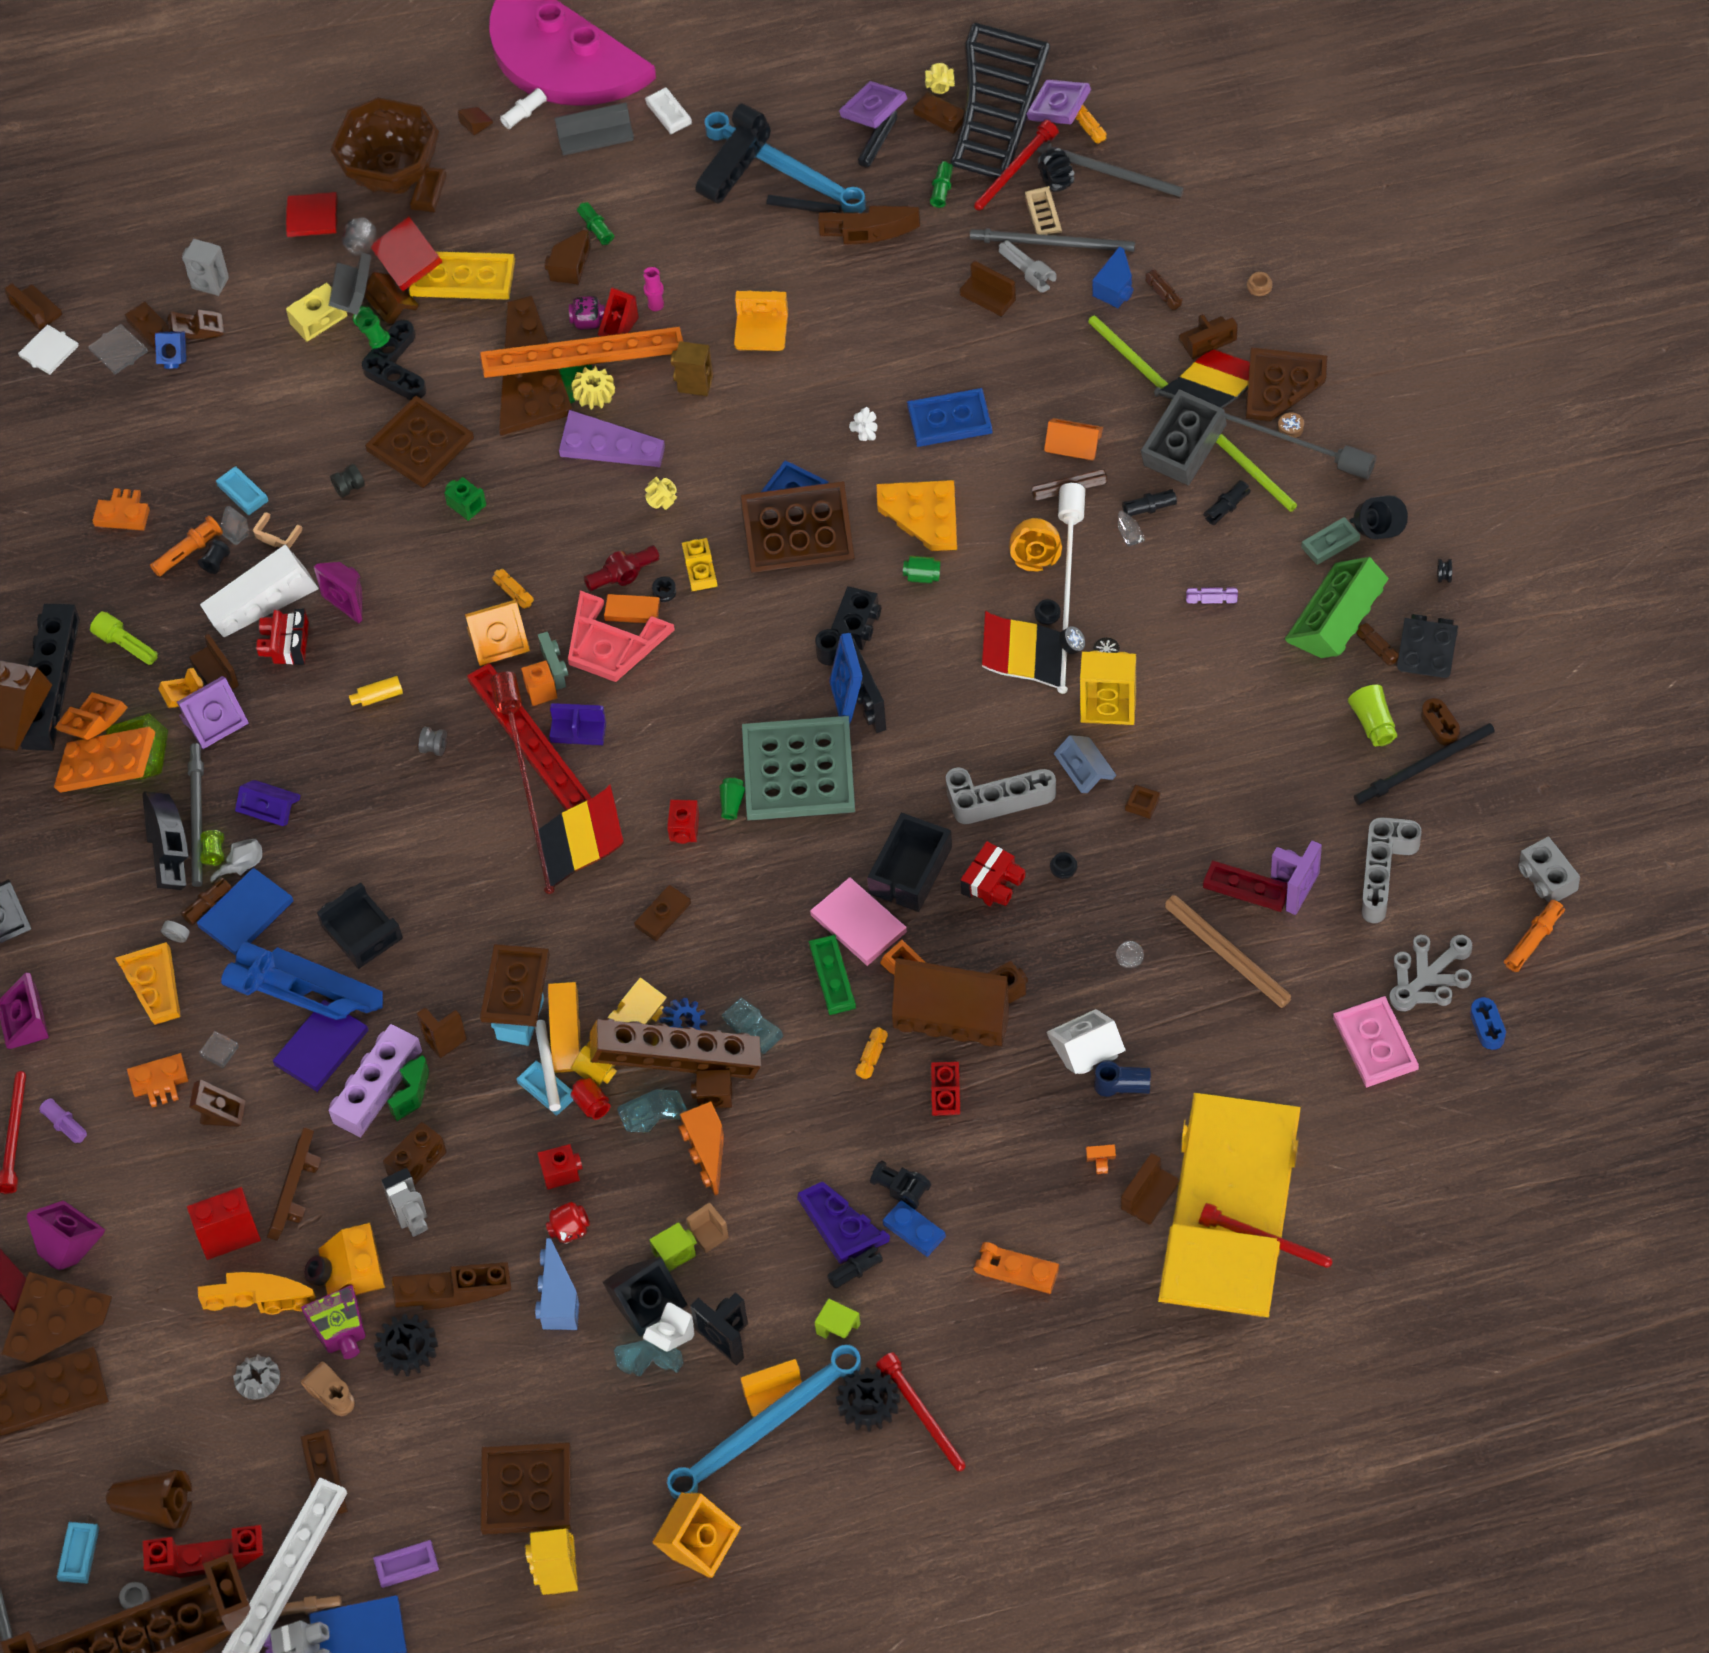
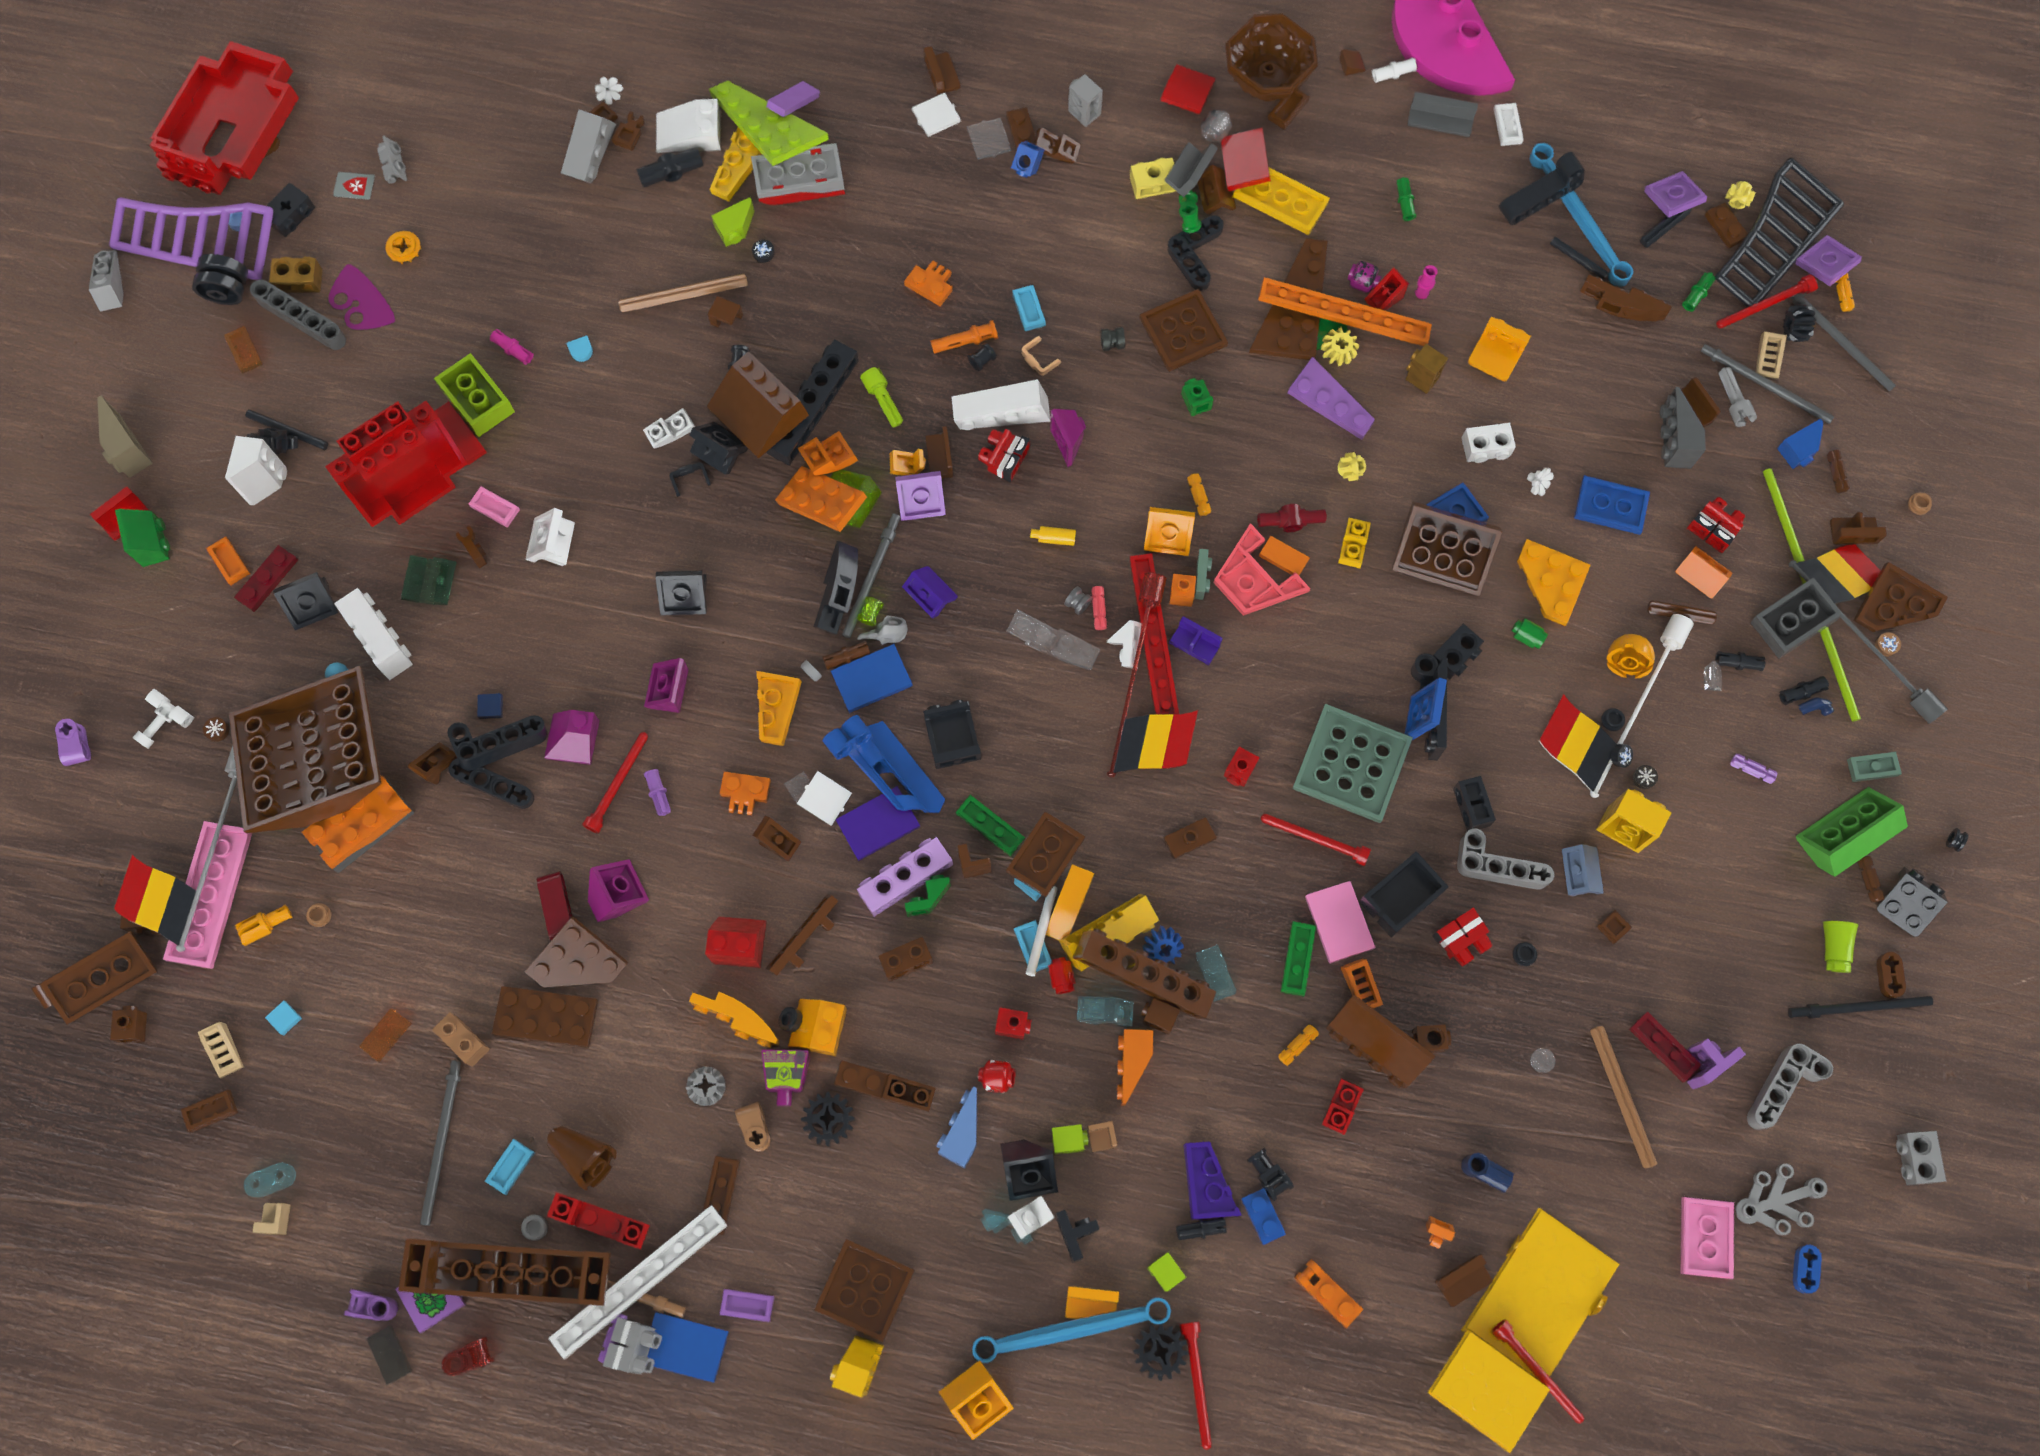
camera: 20 degrees right, 15 degrees up
(234, 526) = (1008, 337): clear slope -> none
(250, 1046) = (824, 798): none -> white piece
(405, 1201) = (877, 999): light grey hips -> none
(428, 792) = (1052, 641): none -> clear slope
(442, 994) = (990, 825): none -> green tile
(458, 740) = (1099, 608): none -> coral axle
(503, 751) = (1129, 638): none -> white slope
(569, 258) = (1370, 222): reddish brown slope -> none
(664, 582) = (1320, 546): black bush -> none
(731, 796) = (1288, 763): green cone -> none
(792, 412) = (1487, 437): none -> white brick
(846, 848) = (1359, 854): none -> red piece
(940, 746) = (1474, 803): none -> black brick
(984, 318) = (1681, 432): none -> dark grey slope
(1064, 388) = (1726, 525): none -> red hips
(1087, 1041) = (1473, 1121): white slope -> none
(1247, 508) = (1816, 703): none -> dark blue arm
(1380, 517) = (1925, 766): black piece -> none
(1541, 926) = (1886, 1207): orange pin -> none

